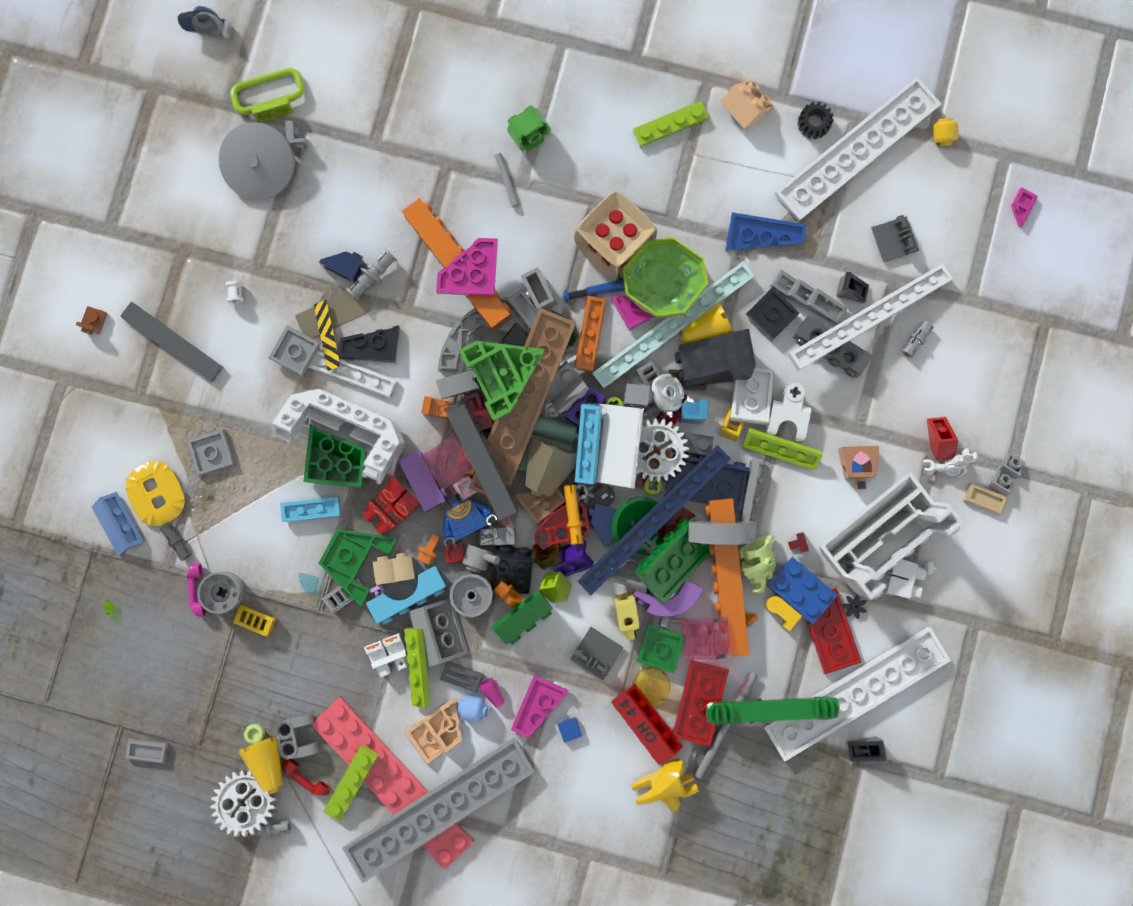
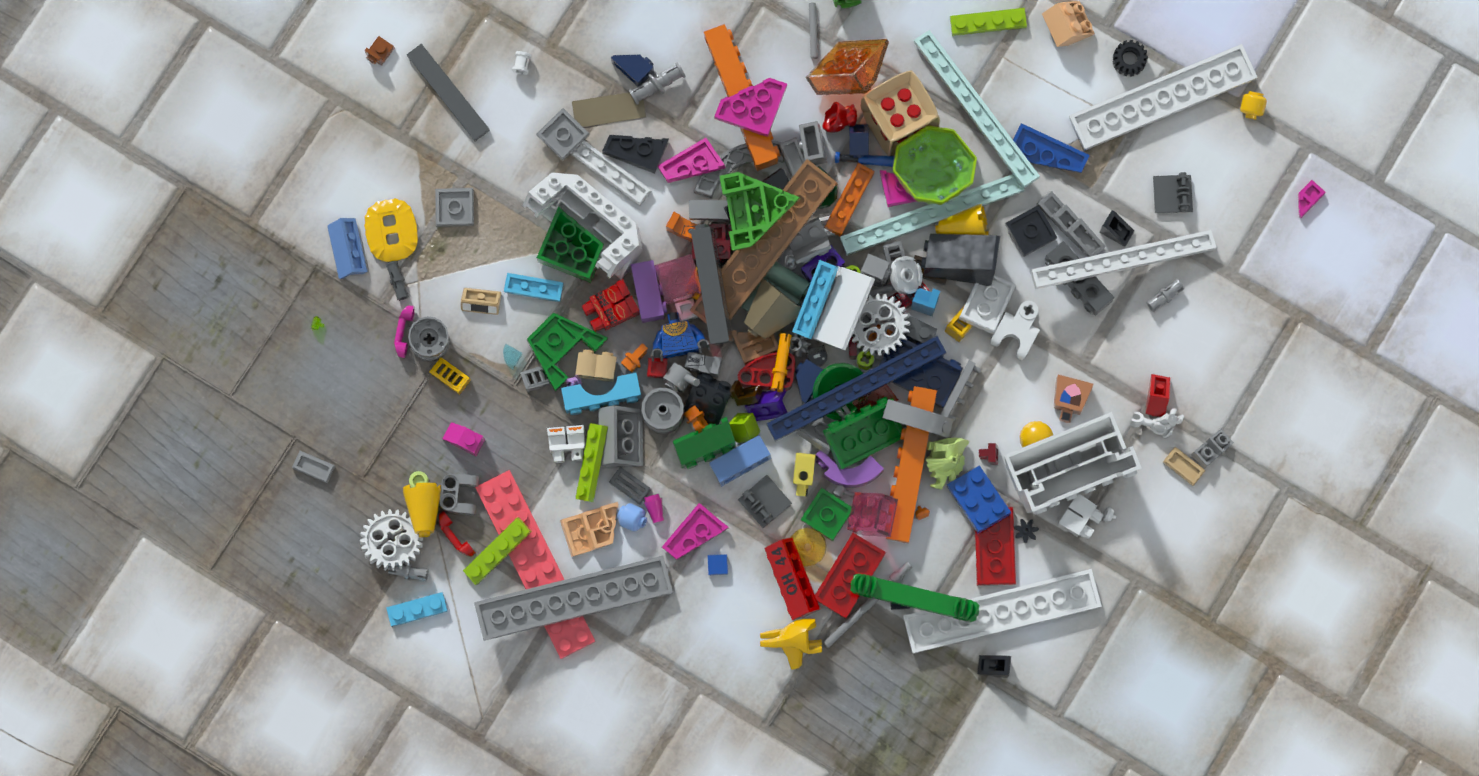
camera: 20 degrees right, 5 degrees down
(263, 537) = (480, 301): none -> tan slope
(286, 679) = (464, 438): none -> dark pink slope
(289, 862) = (417, 609): none -> medium azure plate
(327, 335) = (597, 128): sticker -> none
(428, 341) = (691, 162): none -> dark pink wing
(553, 205) = (849, 68): none -> clear orange slope
(557, 256) = (839, 117): none -> red hair
(561, 621) = (740, 460): none -> medium blue panel
(582, 273) = (859, 140): none -> dark blue slope
(686, 211) = (976, 109): none -> light aqua plate
(782, 449) = (1001, 361): lime plate -> none
(783, 610) = (953, 510): yellow leg -> none
(838, 513) = (1034, 432): none -> yellow piece

